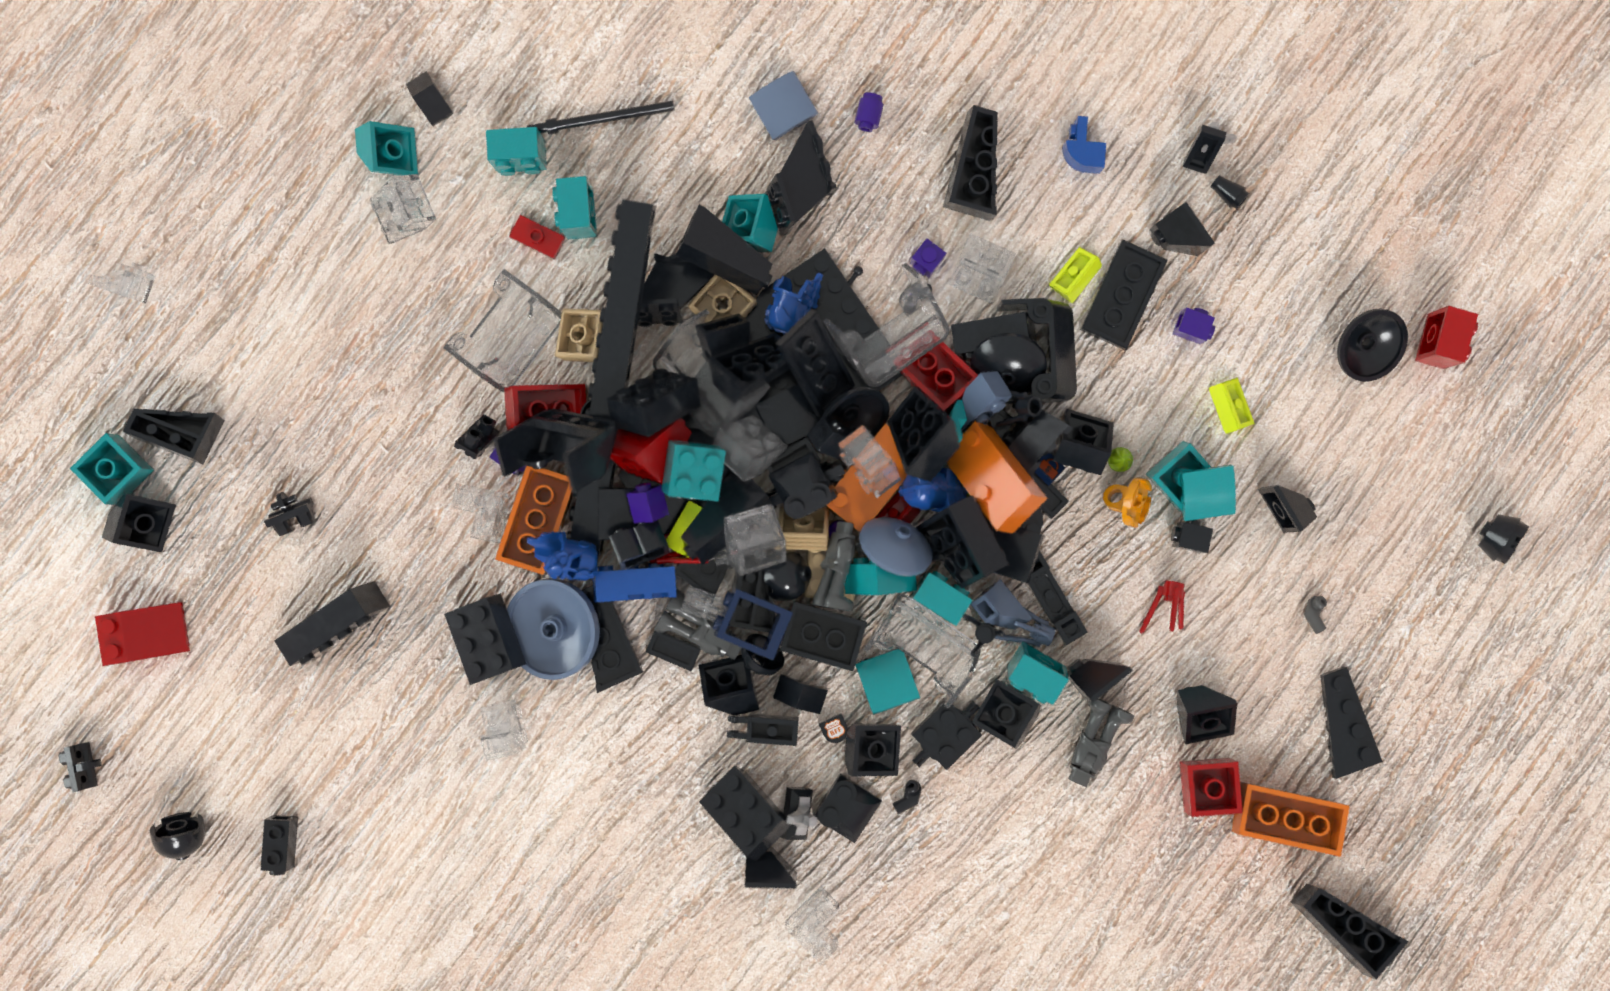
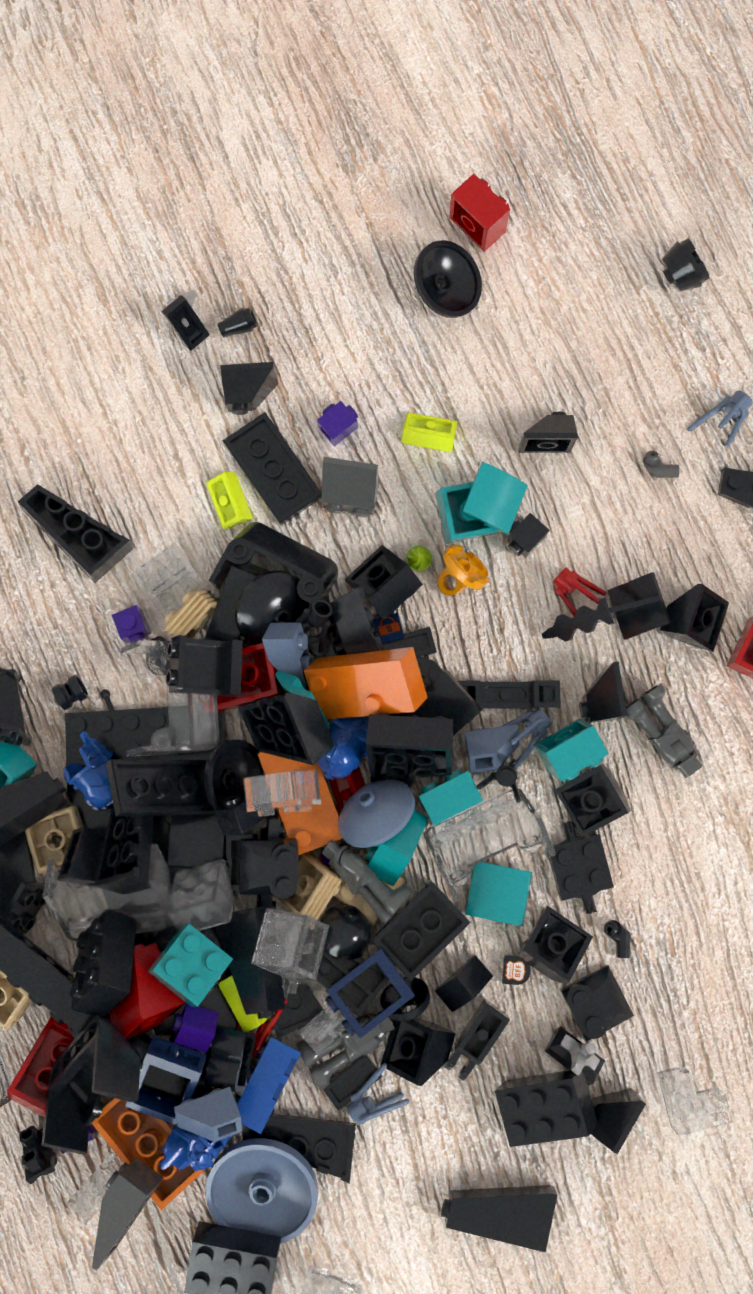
camera: 55 degrees left, 5 degrees down
(486, 527) = (126, 1197): none -> dark grey slope
(591, 555) = (210, 1116): none -> sand blue slope
(616, 504) = (161, 1055): none -> dark blue window
(644, 827) = (503, 1214): none -> black slope
(659, 671) = (364, 1108): none -> sand blue plant
(838, 240) = (70, 692): none -> black wheel
(931, 340) = (204, 666): none -> black panel
(965, 304) = (193, 615): none -> tan brick
(1083, 154) = (122, 433): blue brick -> none
(1146, 368) = (349, 486): none -> dark grey slope
(1186, 658) = (635, 605): none -> black piece
(1403, 648) = (735, 407): none -> sand blue plant

